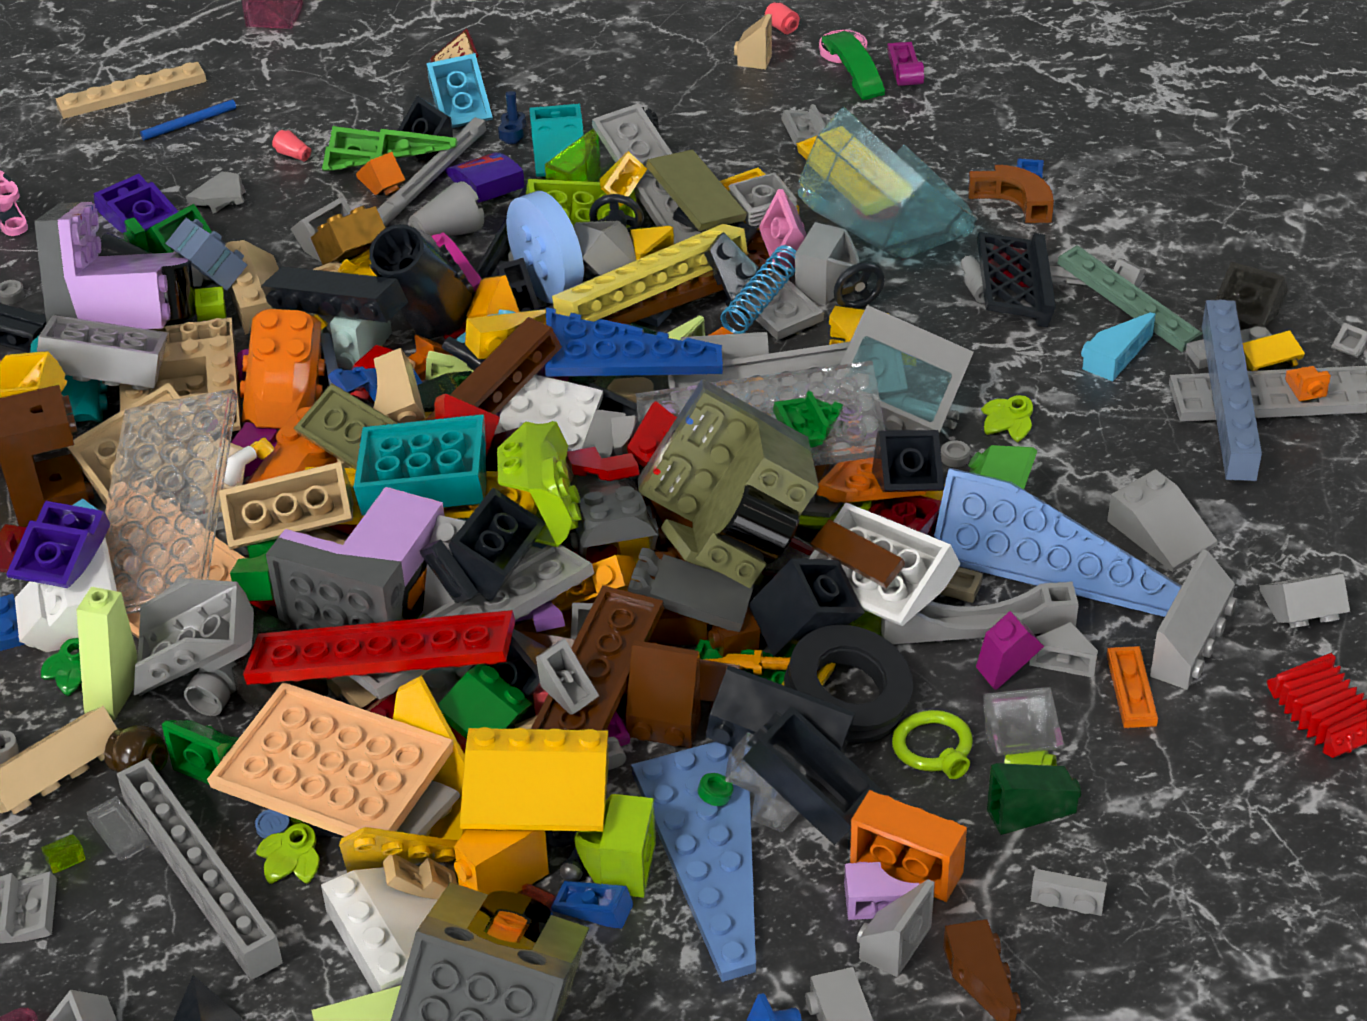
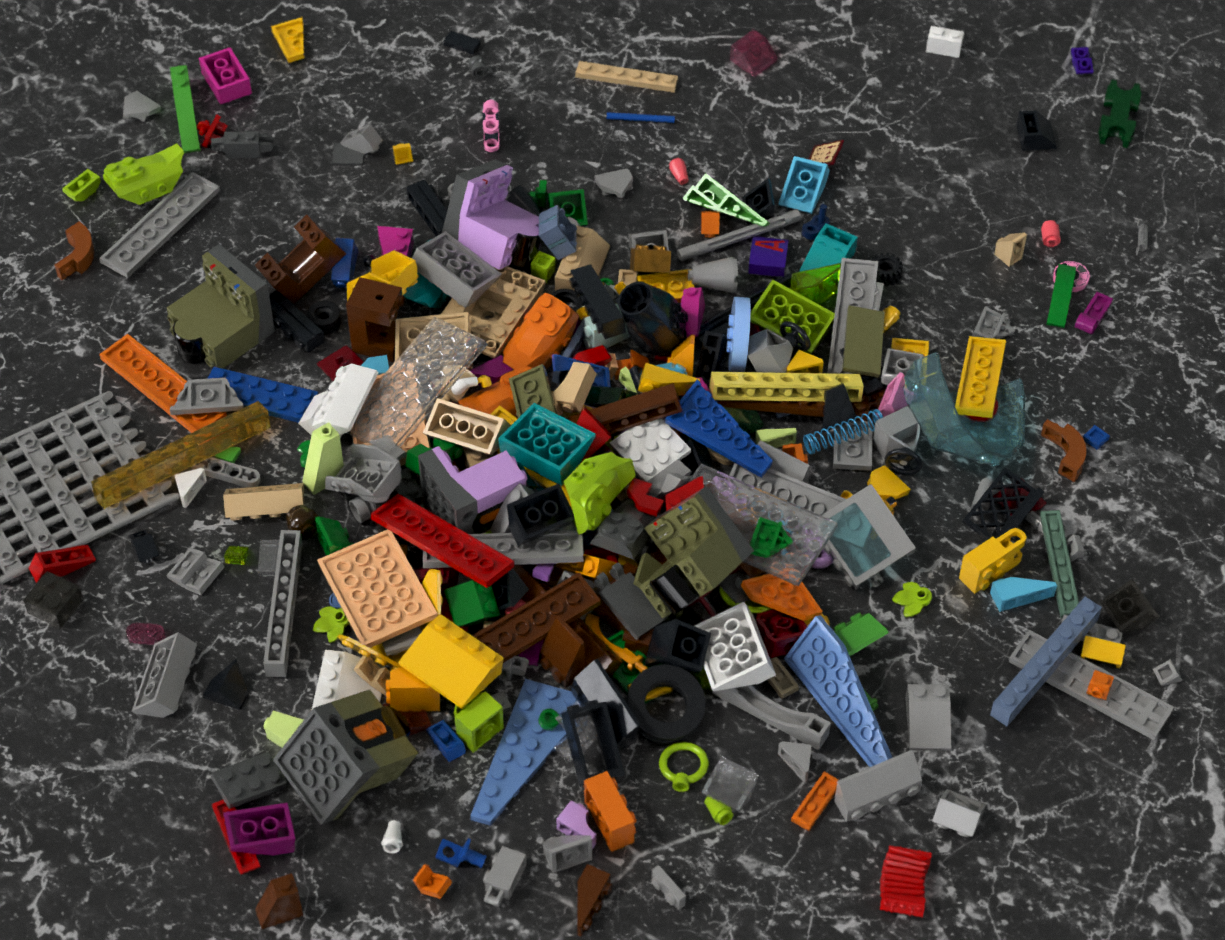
camera: 35 degrees right, 10 degrees up
(59, 544) = (340, 384): dark purple slope -> none
(133, 199) = (561, 168): dark purple slope -> none
(448, 571) = (503, 518): black tile -> none
(564, 677) = (513, 614): light grey slope -> none
(623, 176) = (826, 309): yellow slope -> none
(858, 553) = (723, 636): reddish brown tile -> none
(908, 461) = (801, 598): black slope -> none
(955, 453) = (861, 603): light grey tile -> none
(1006, 649) = (764, 738): magenta slope -> none
(1030, 795) = (698, 825): dark green slope -> none
(1060, 329) = (991, 560): none -> yellow brick

